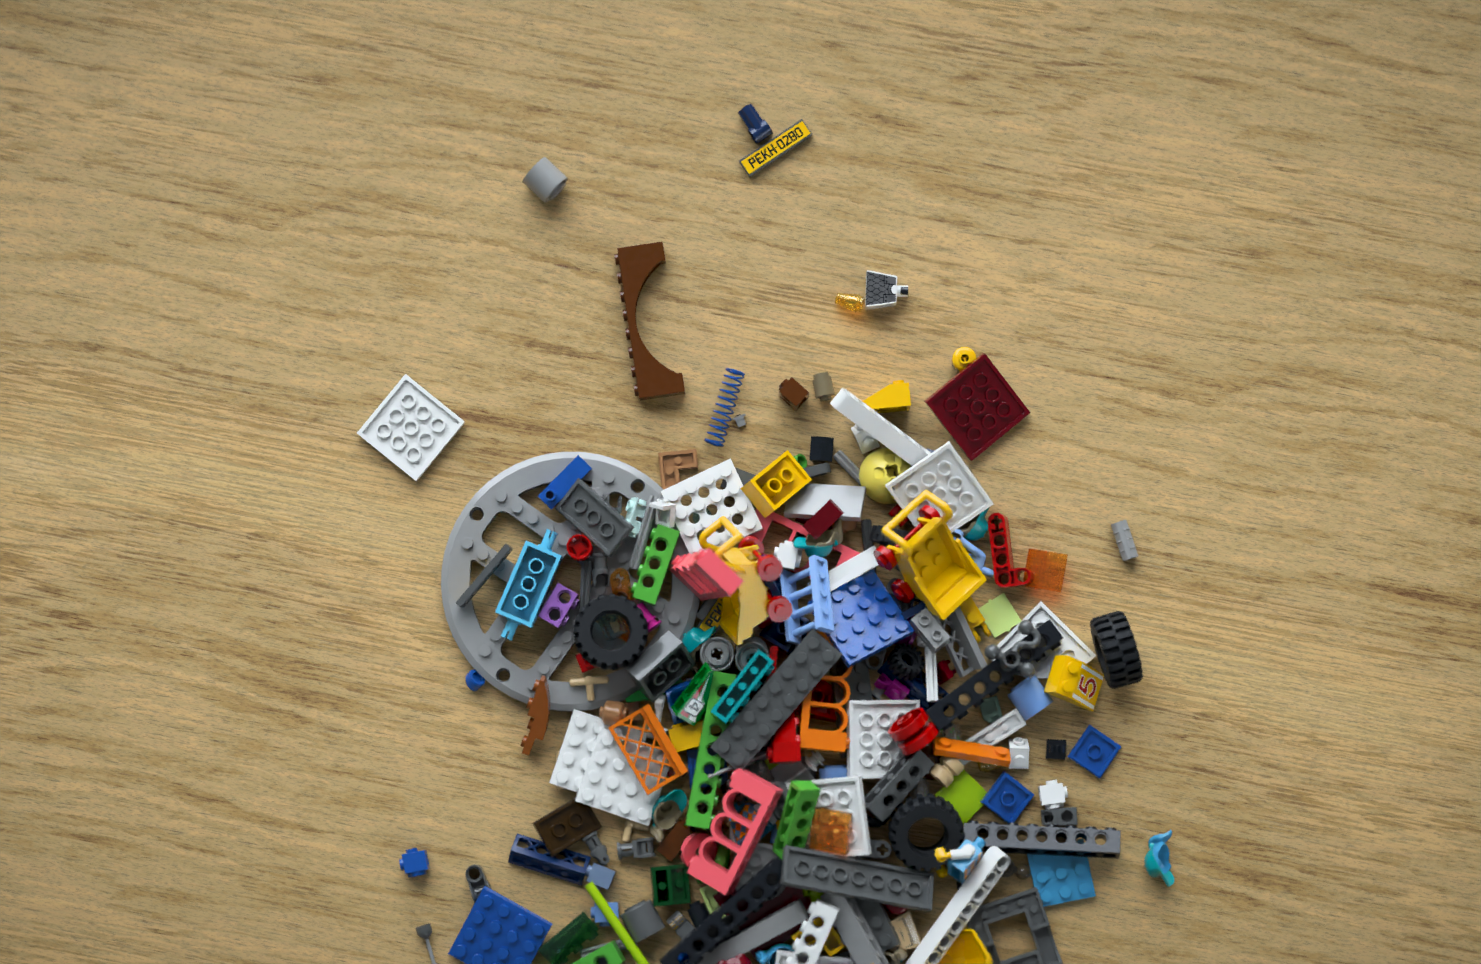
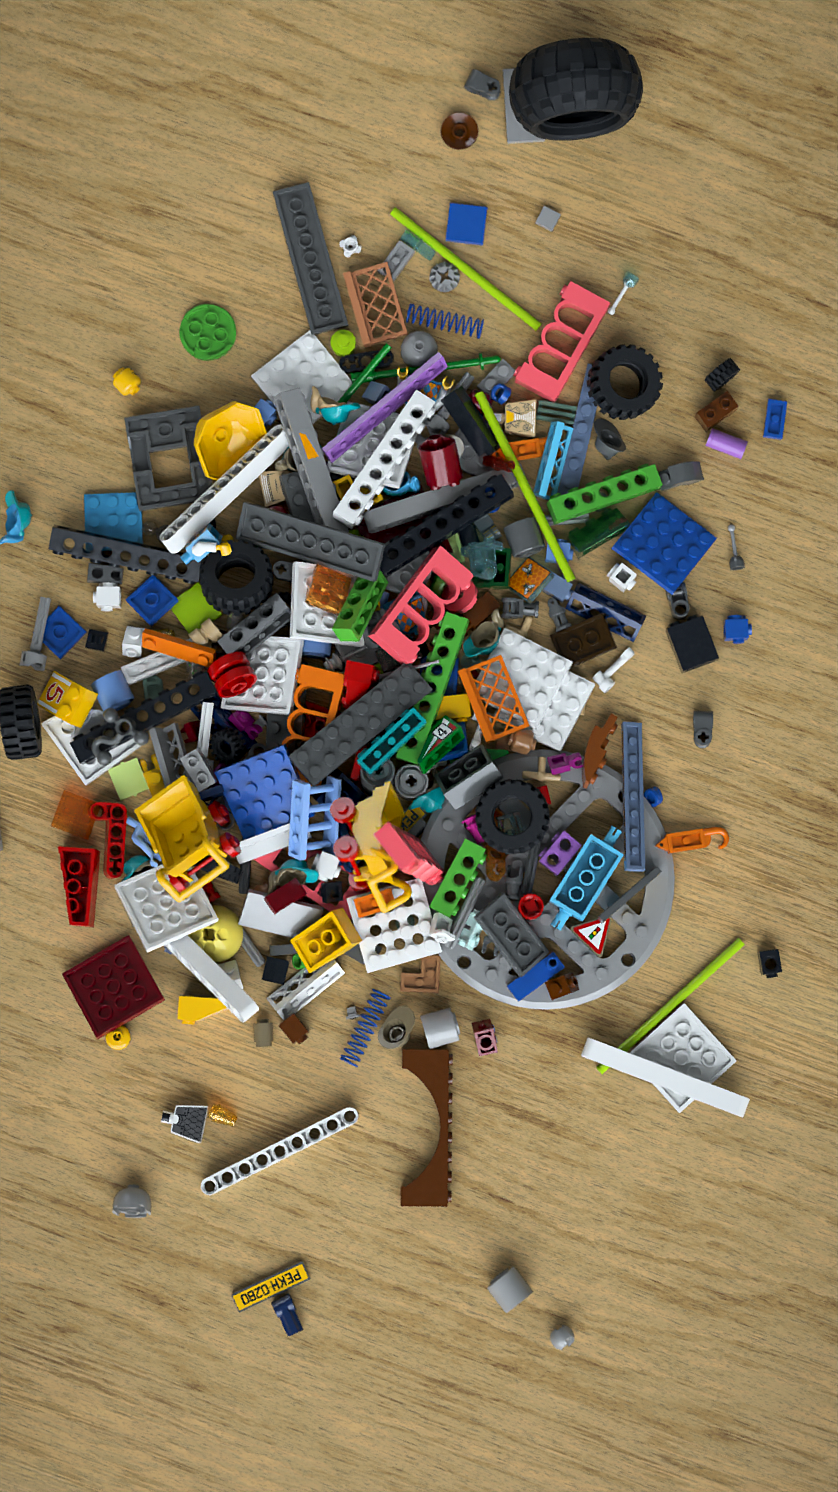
camera: 175 degrees left, 0 degrees up
(340, 541) = (770, 954): none -> black brick
(424, 404) = (665, 1077): none -> white beam
(429, 476) = (677, 999): none -> lime piece
(430, 642) = (691, 840): none -> orange plate
(435, 760) = (702, 725): none -> dark grey piece
(458, 840) = (691, 643): none -> black brick
(488, 144) = (562, 1337): none -> light grey piece
(494, 674) = (633, 797): none -> sand blue plate
(515, 532) = (593, 934): none -> piece
(537, 476) = (562, 986): none -> reddish brown bracket
(537, 896) = (622, 577): none -> white brick
(541, 790) = (604, 679): none -> white brick
(570, 696) = (562, 763): none -> magenta plate
(605, 415) = (485, 1037): none -> dark red head
(630, 879) = (530, 579): none -> tile
(650, 418) = (440, 1027): none -> light grey piece
(678, 783) = (467, 662): none -> clear light blue tile
(681, 893) = (482, 557): none -> clear light blue pin
(693, 411) = (397, 1028): none -> dark tan piece
(741, 521) = (367, 904): none -> orange plate
(778, 532) = (331, 891): none -> black tile
(788, 433) = (307, 988): none -> white fence
(793, 268) = (270, 1151): none -> white beam
(922, 205) = (132, 1202): none -> light grey cylinder
(1028, 502) = (80, 883): none -> red wedge
(1115, 721) = (34, 657): none -> light grey piece

